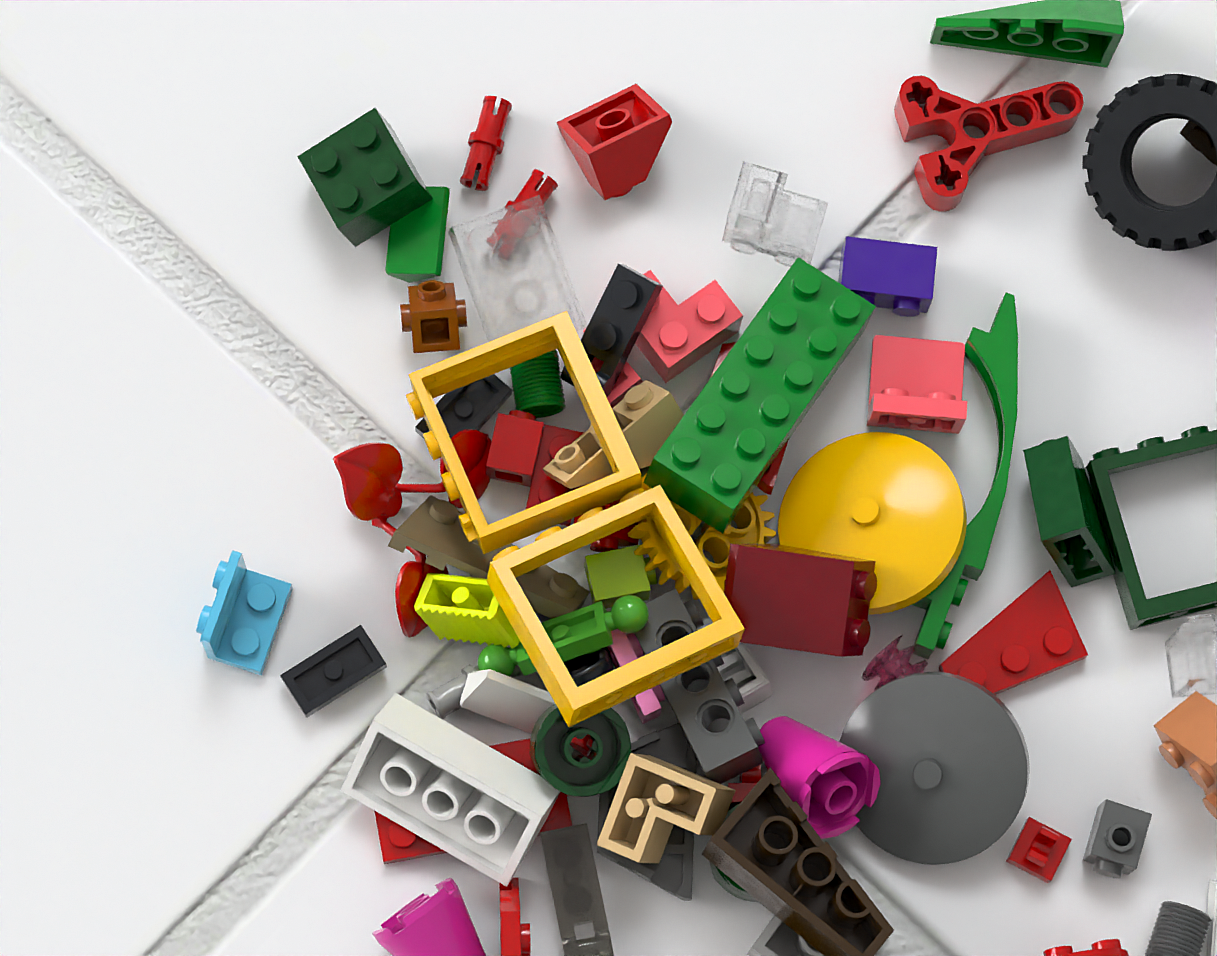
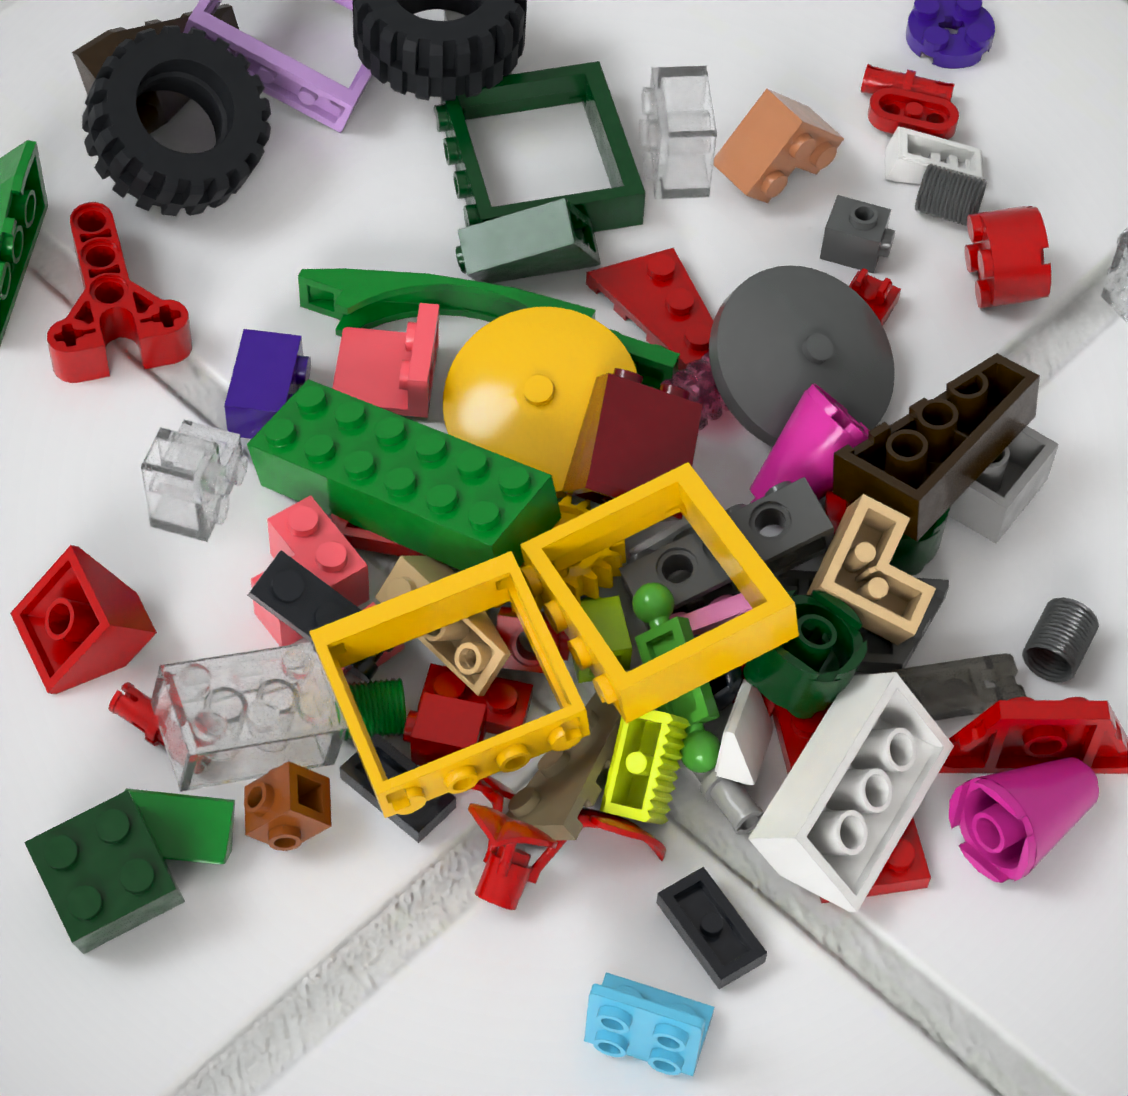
camera: 85 degrees left, 20 degrees down
(485, 143) = (67, 760): red pin -> none

